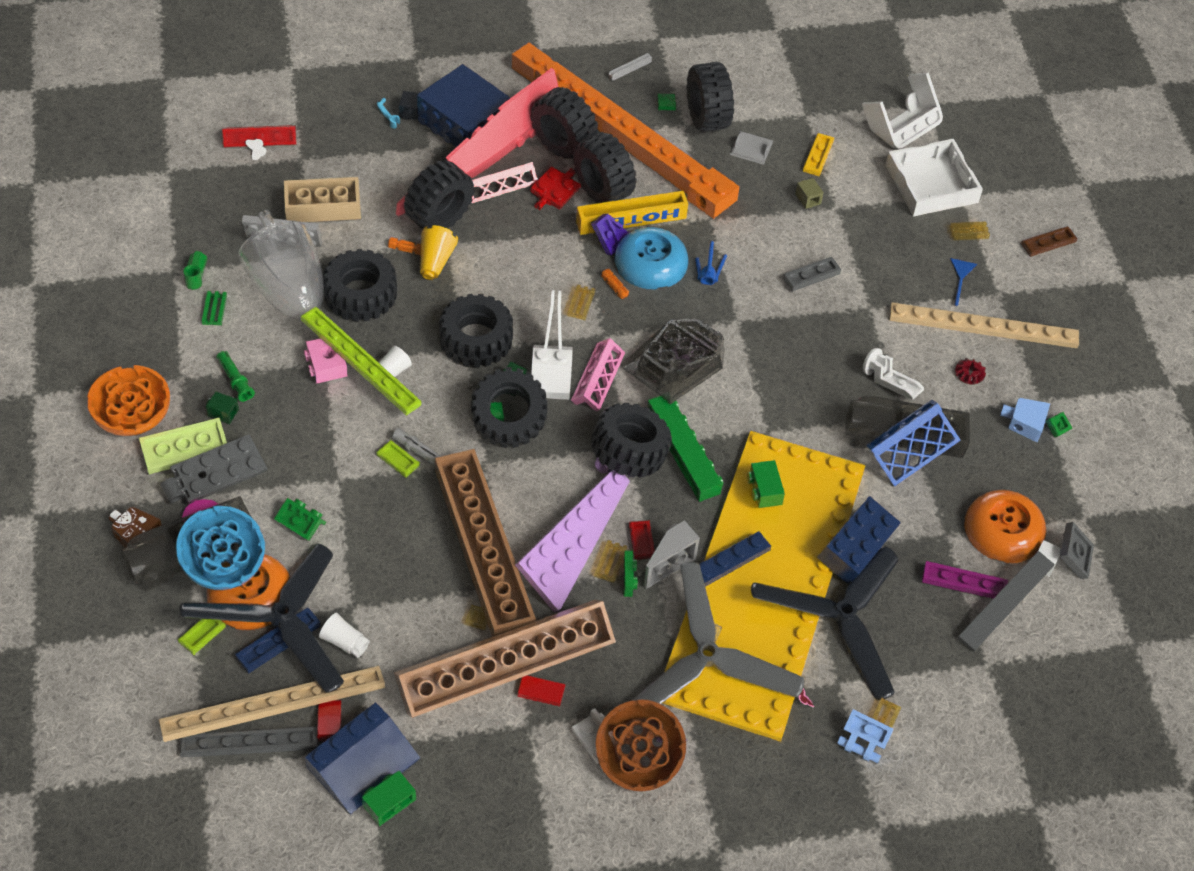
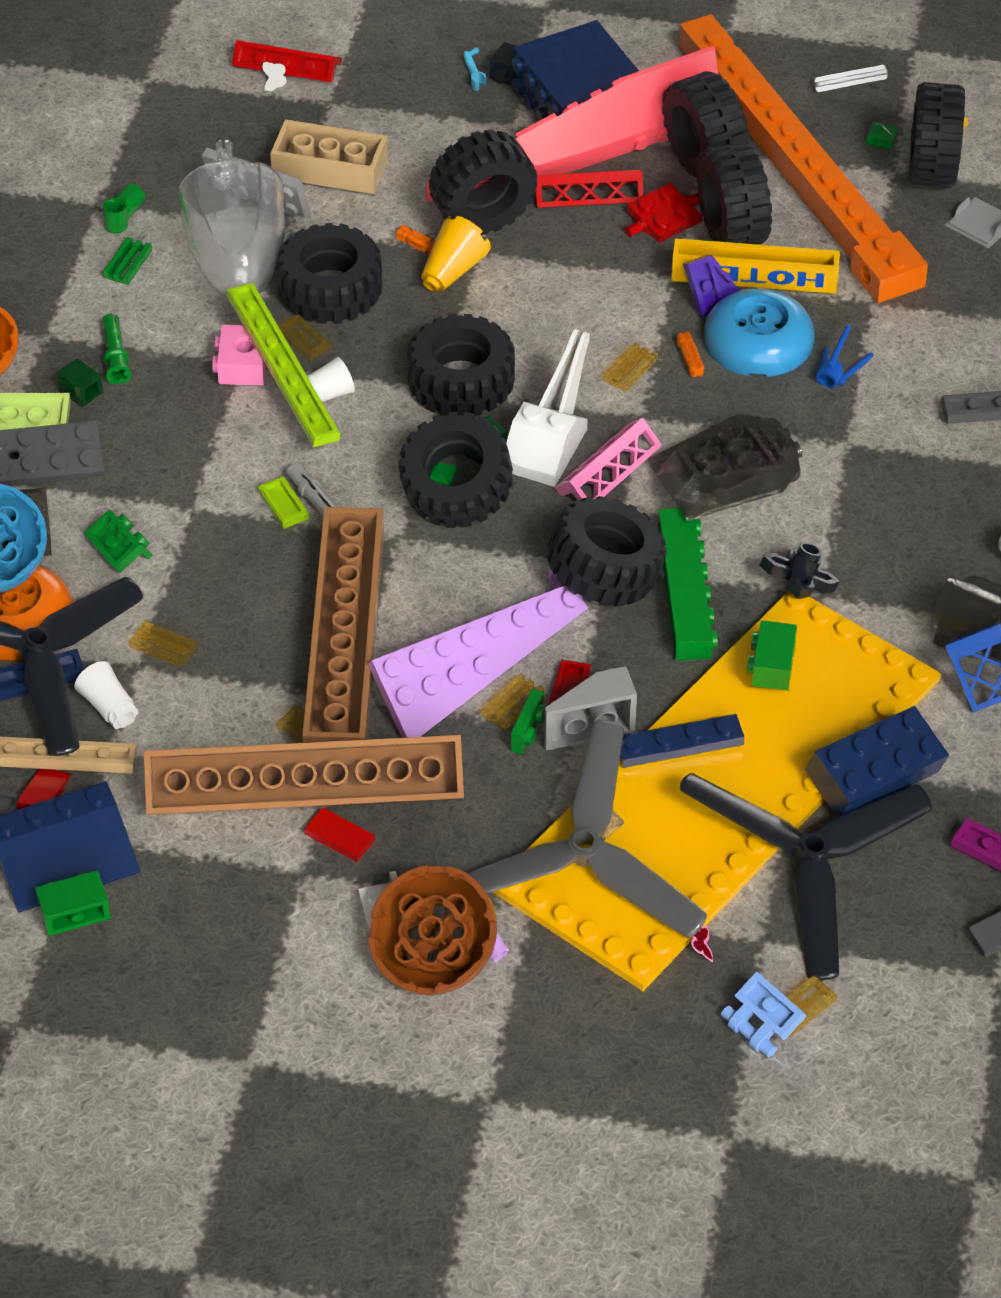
camera: 25 degrees right, 5 degrees down
(358, 337) = (308, 349): none -> clear yellow tile
(379, 584) = (166, 640): none -> clear yellow tile
(753, 418) = (801, 570): none -> black plant

